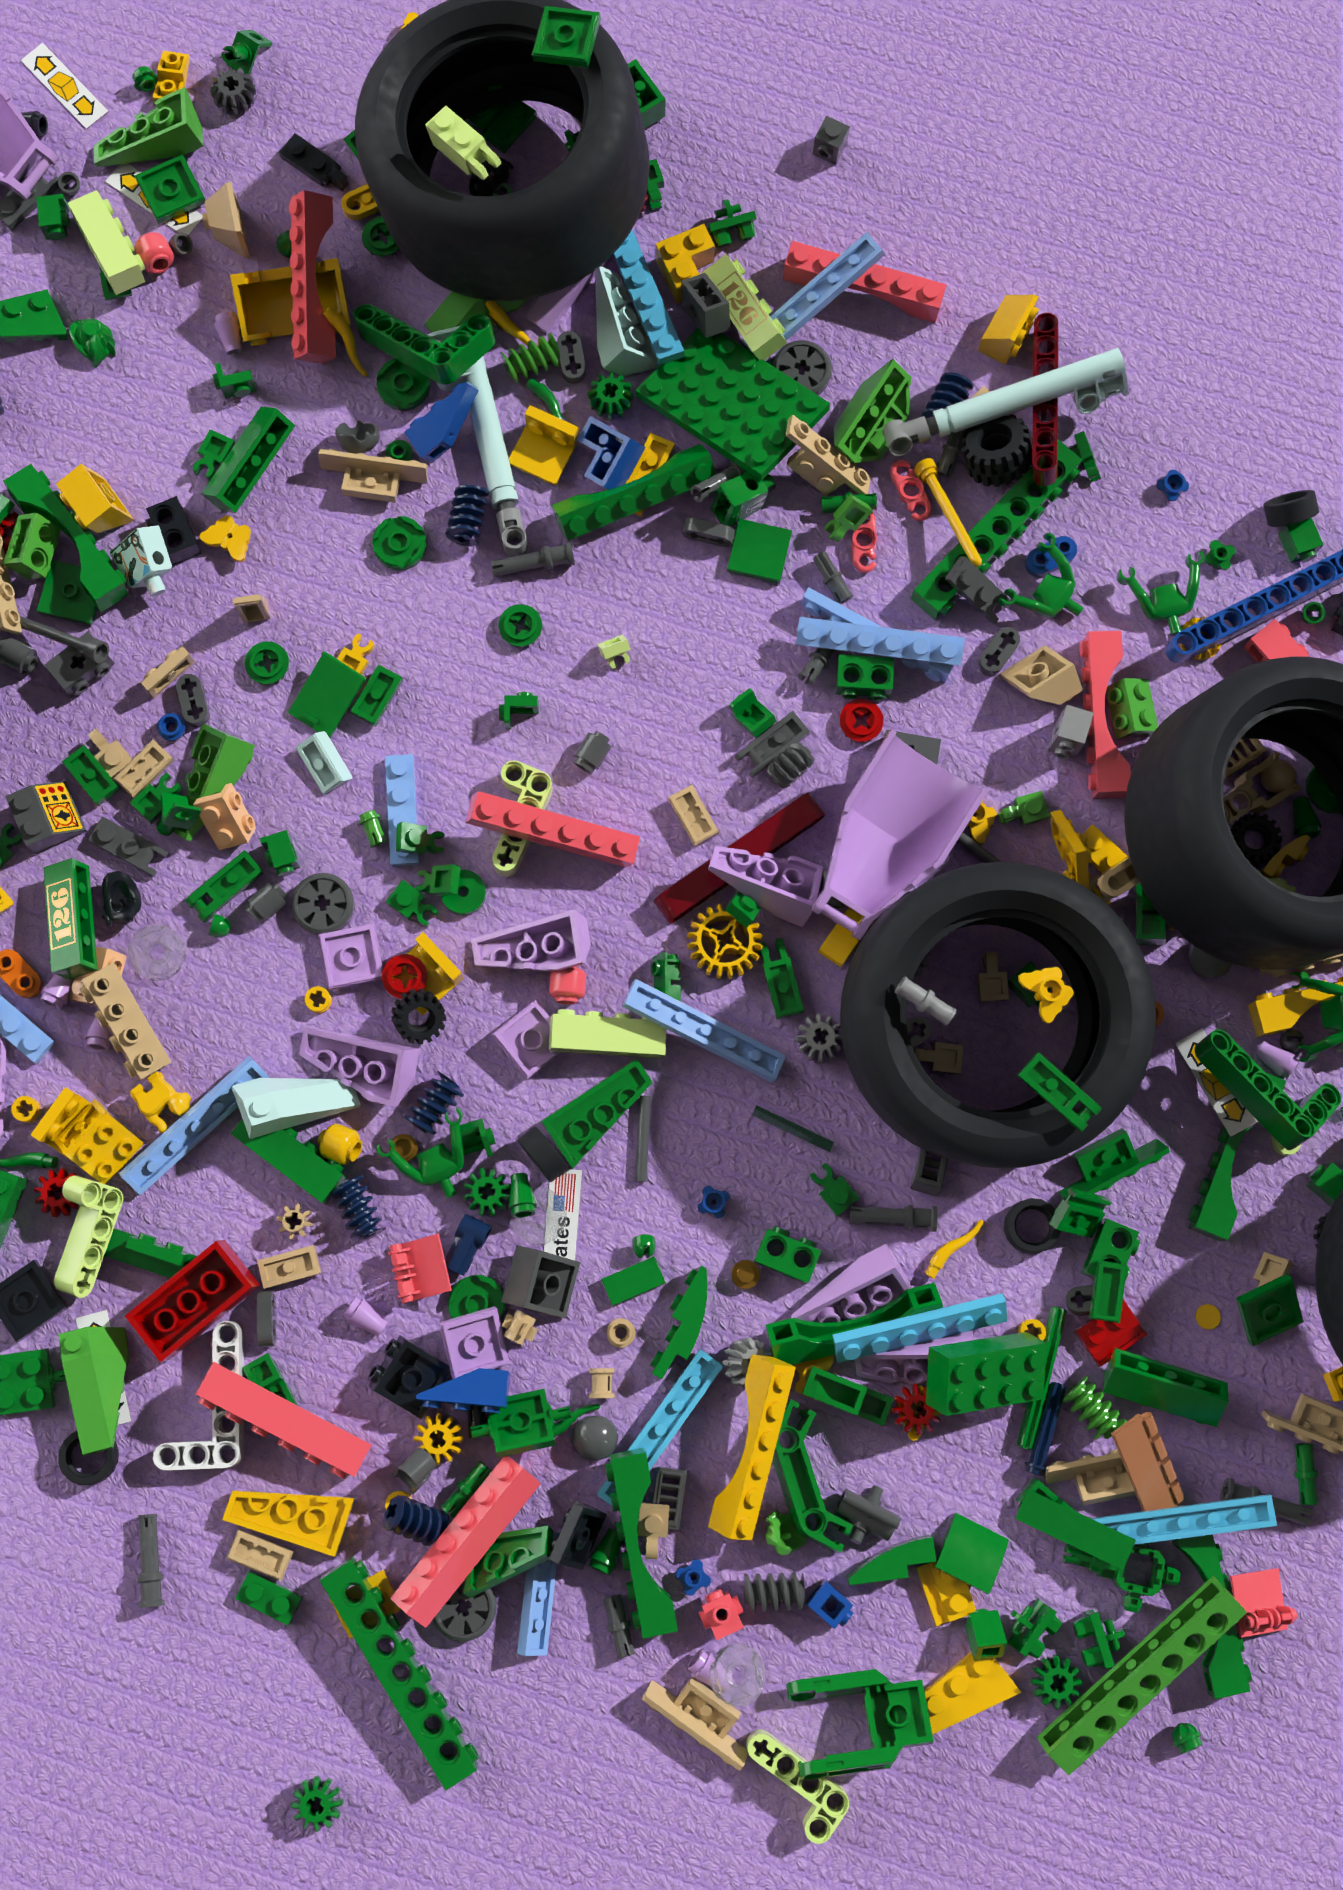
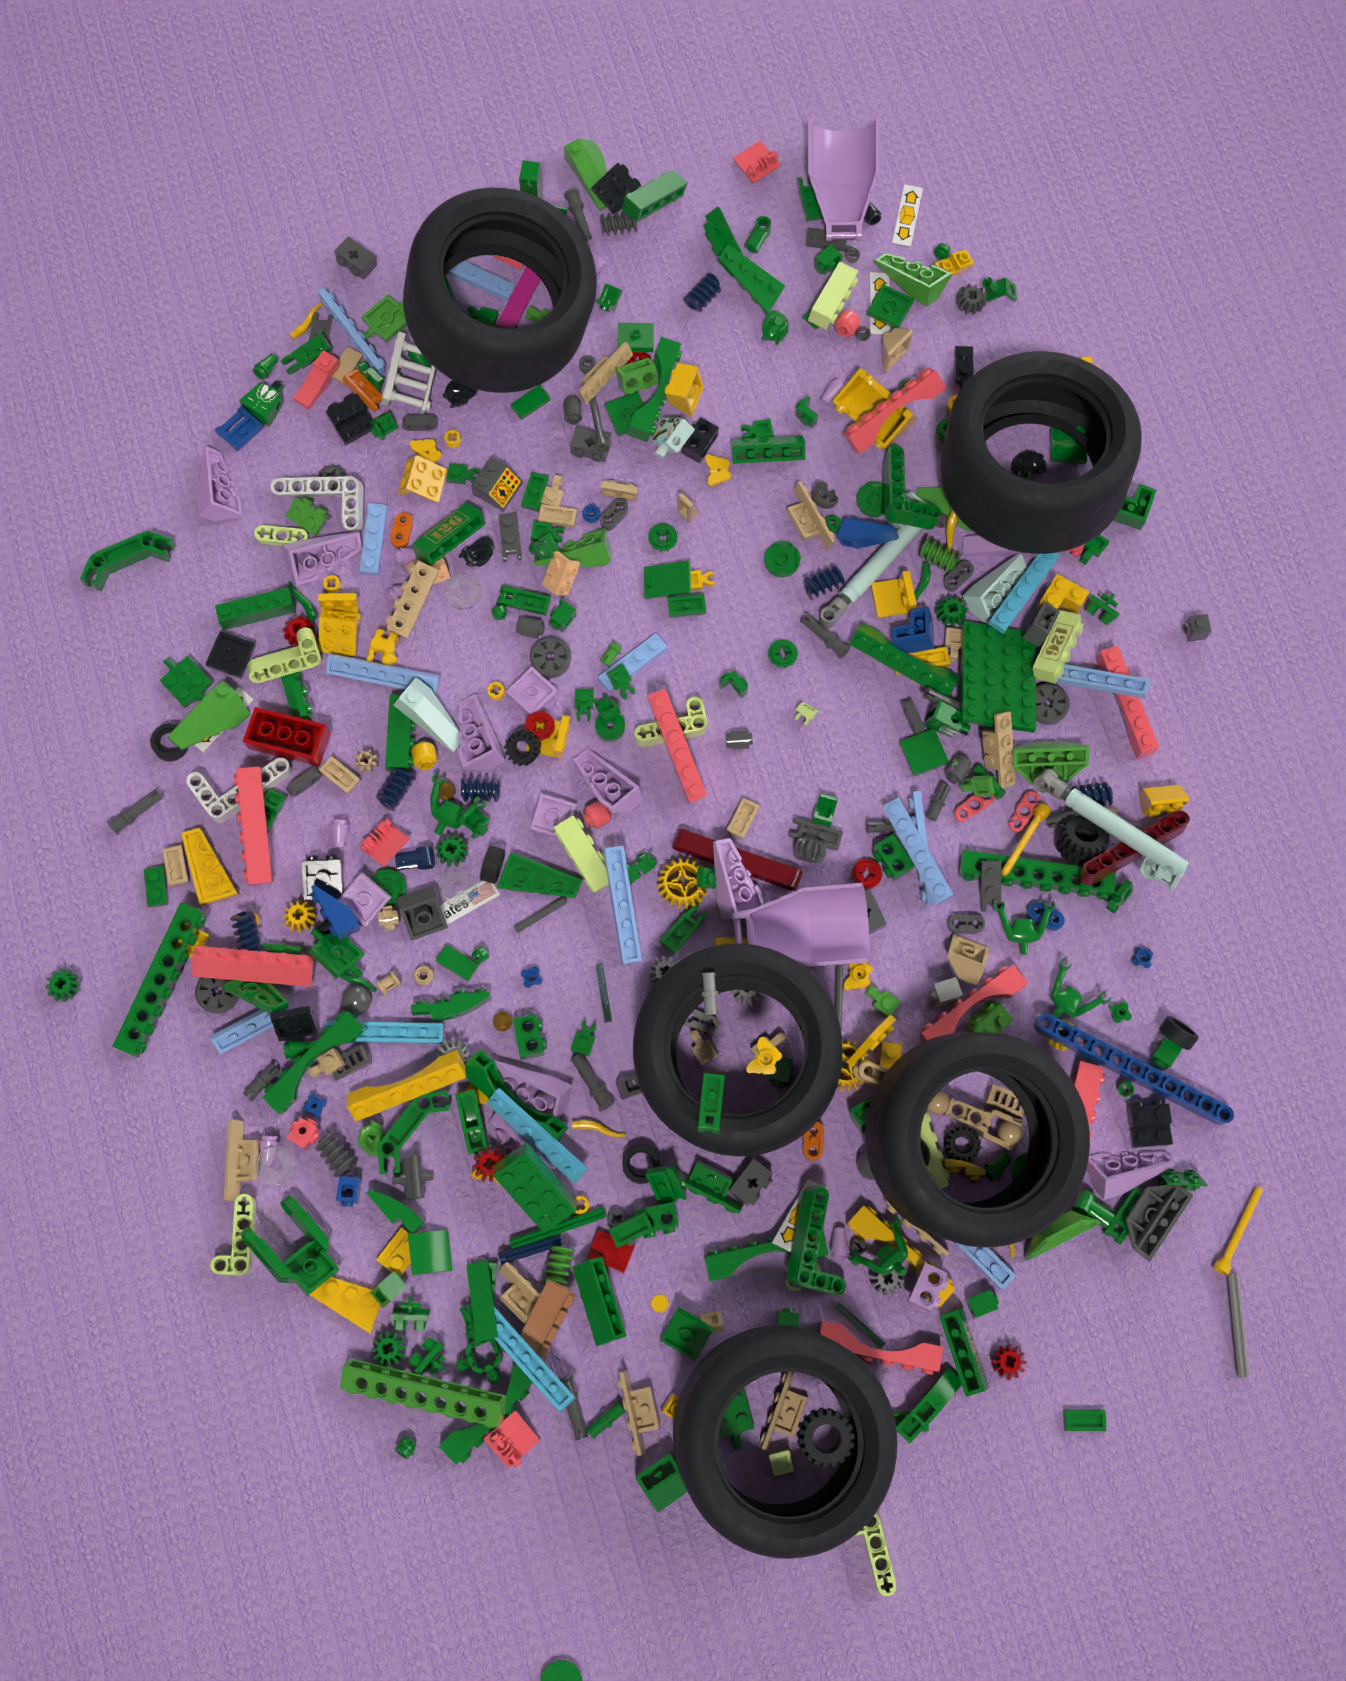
camera: 55 degrees right, 5 degrees down
(323, 762) = (629, 604): light aqua slope -> none
(344, 330) = (879, 442): yellow animal -> none
(416, 1469) = (273, 914): dark grey piece -> none
(460, 143) = (1009, 423): yellowish green hinge -> none
(521, 1199) = (459, 870): green cone -> none
(566, 36) = (1114, 435): green plate -> none
(649, 420) = (953, 641): none -> tan plate
(810, 526) = (958, 769): none -> dark grey brick
(1147, 1126) = (740, 1188): none -> dark grey brick

